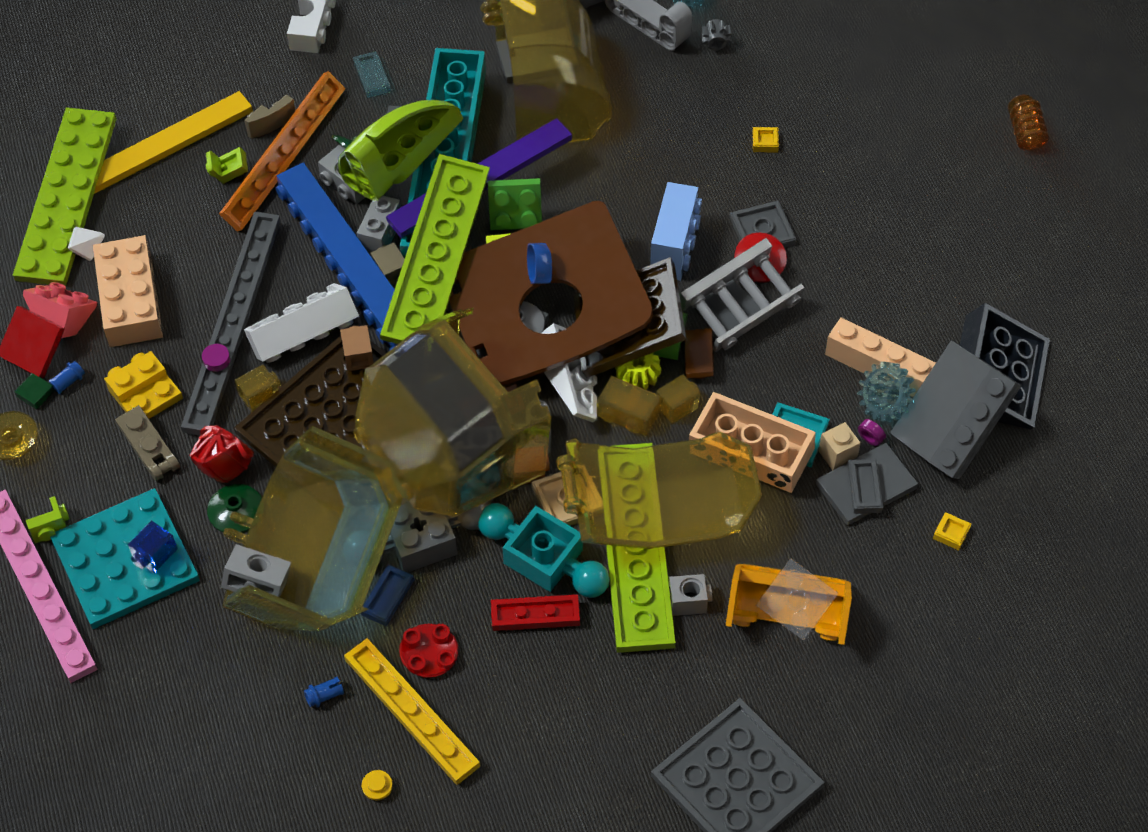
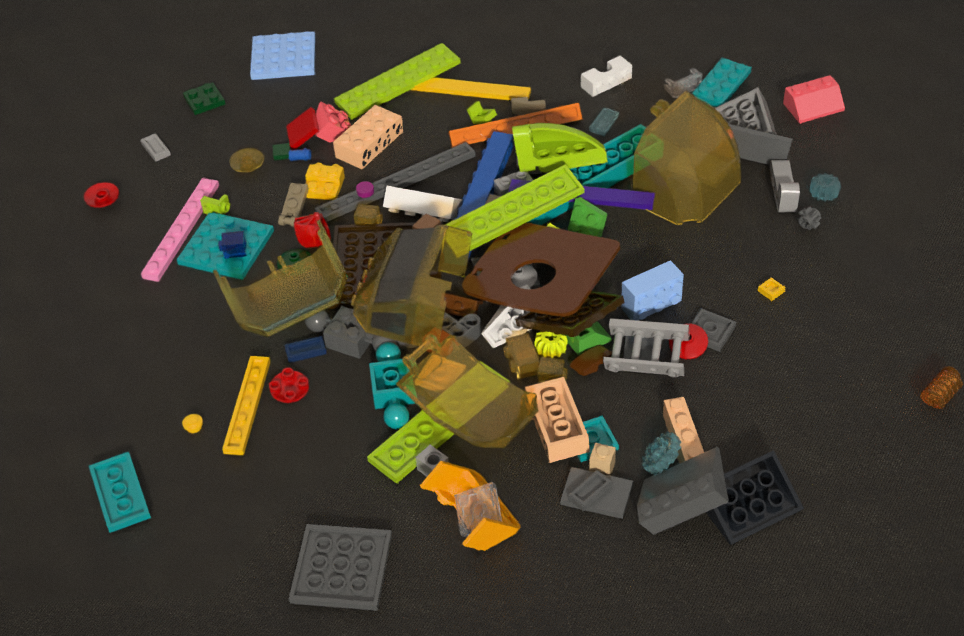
camera: 50 degrees right, 10 degrees down
(83, 241) = (379, 101): white slope -> none
(255, 569) = (256, 289): light grey brick -> none
(323, 692) = (219, 363): blue pin -> none
(535, 612) = (354, 410): red plate -> none
(539, 263) = (548, 247): blue hat -> none
(871, 432) = (630, 467): magenta tile -> none
(952, 531) = (611, 554): yellow tile -> none

